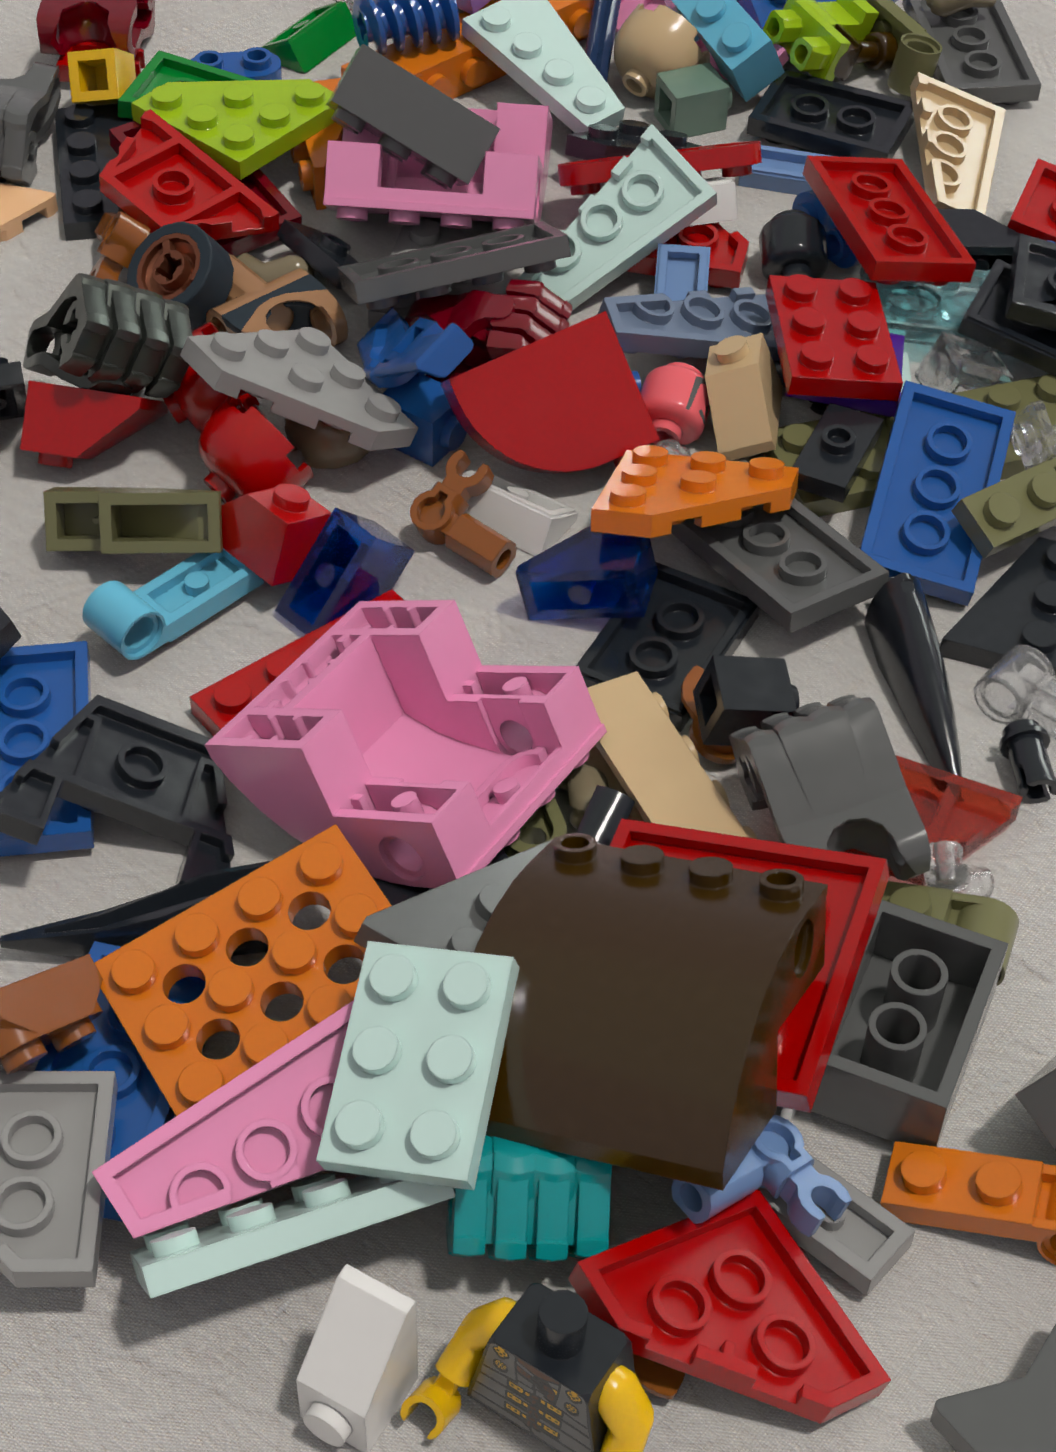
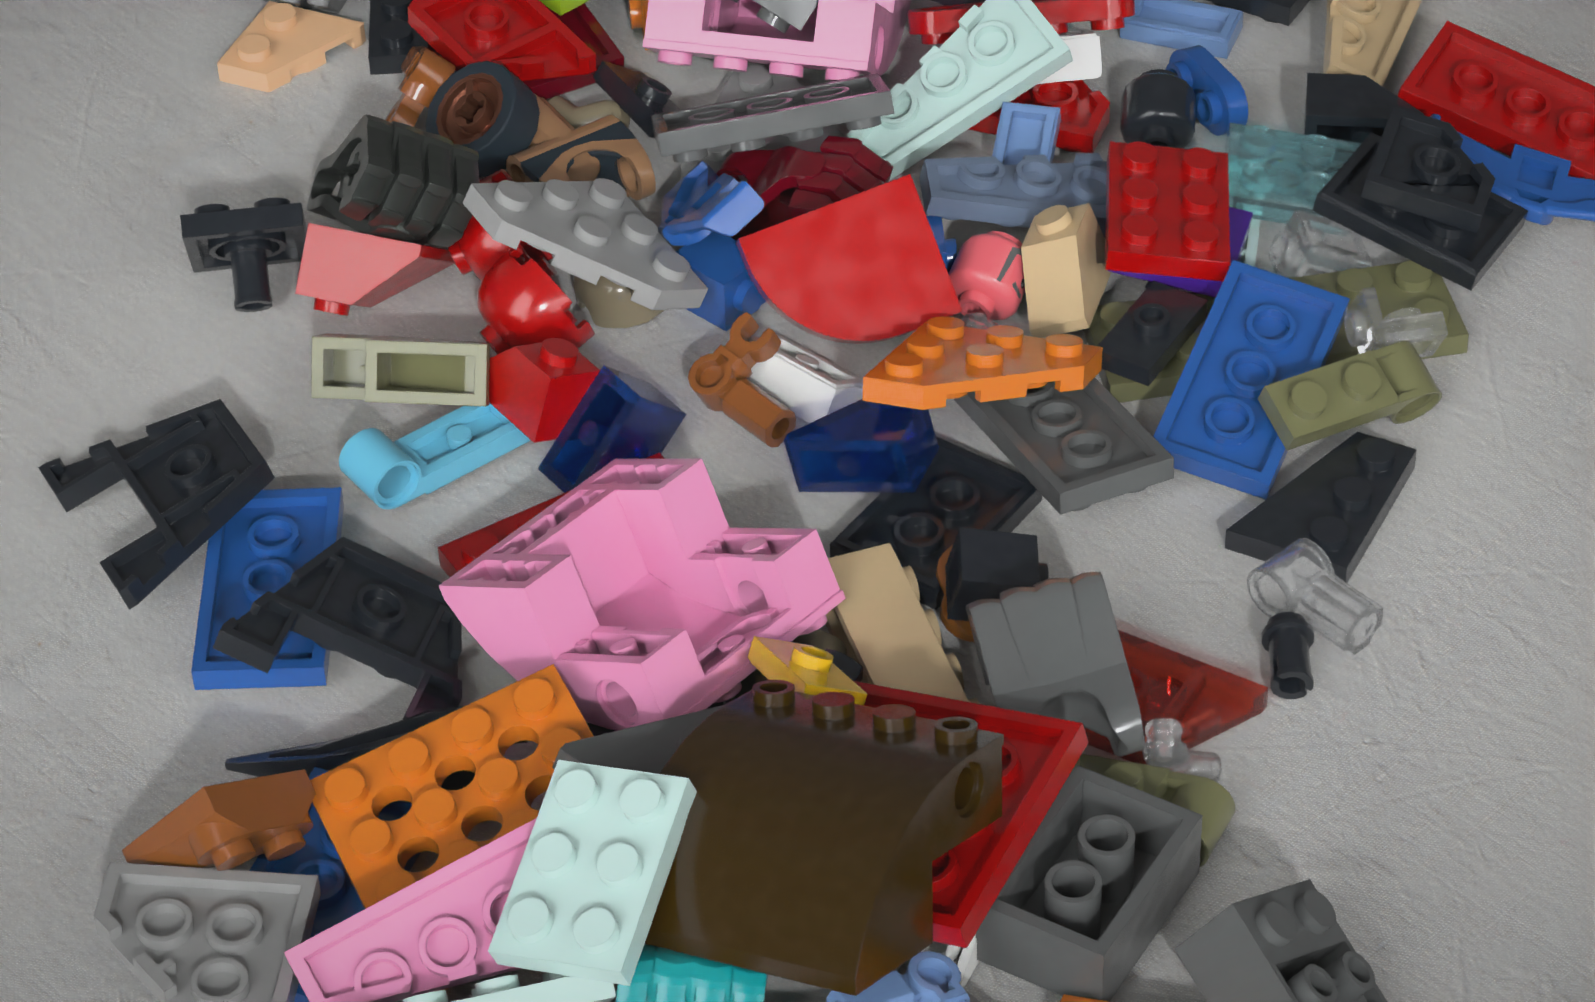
camera: 10 degrees right, 5 degrees down
(589, 812) = (803, 666): none -> yellow plate
(888, 220) = (1257, 84): red plate -> none
(915, 668) = (1191, 556): black piece -> none

